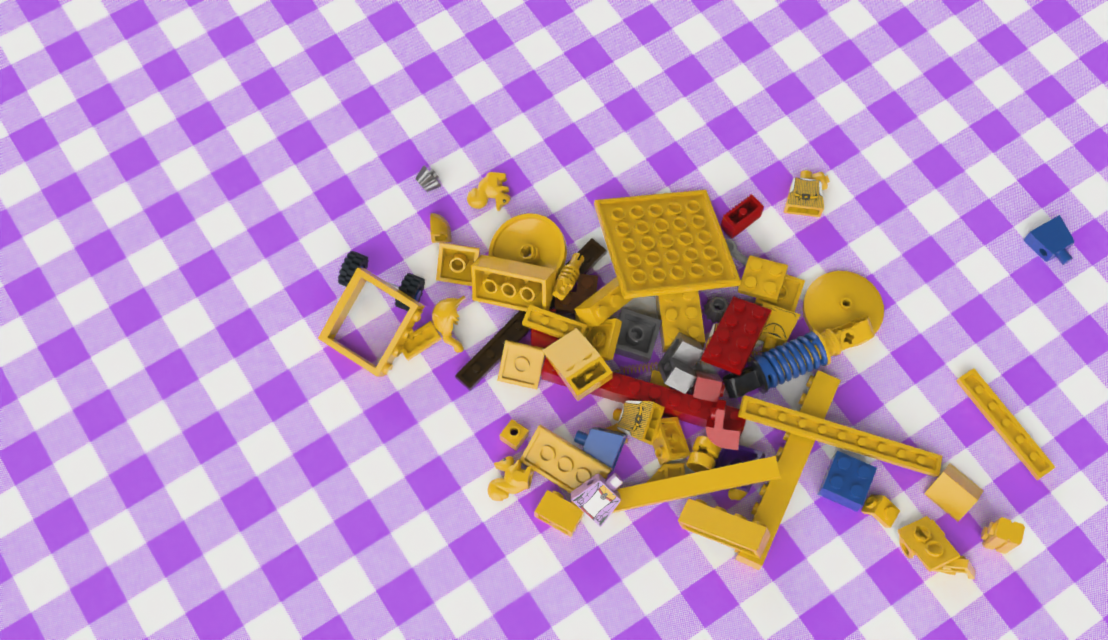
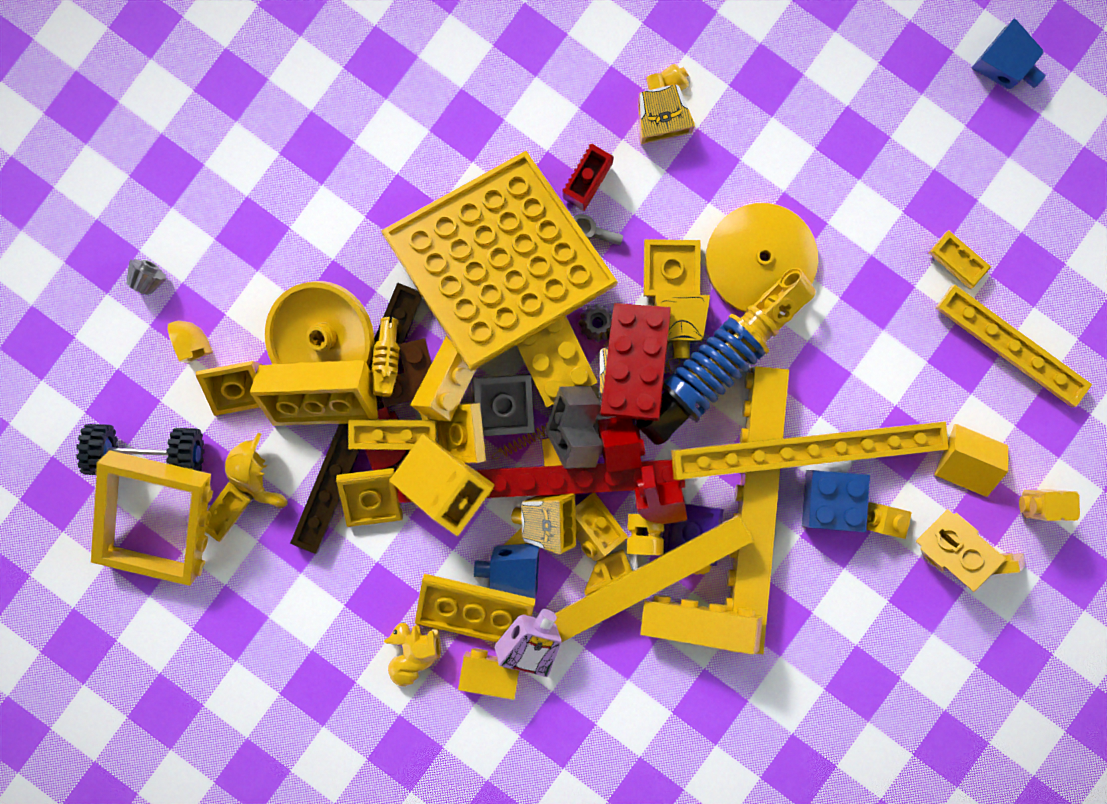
camera: 15 degrees left, 20 degrees up
(488, 188) = (234, 256): yellow animal -> none
(514, 441) = (404, 588): yellow plate -> none
(763, 279) = (644, 260): yellow plate -> none
(981, 354) = (959, 259): none -> yellow plate

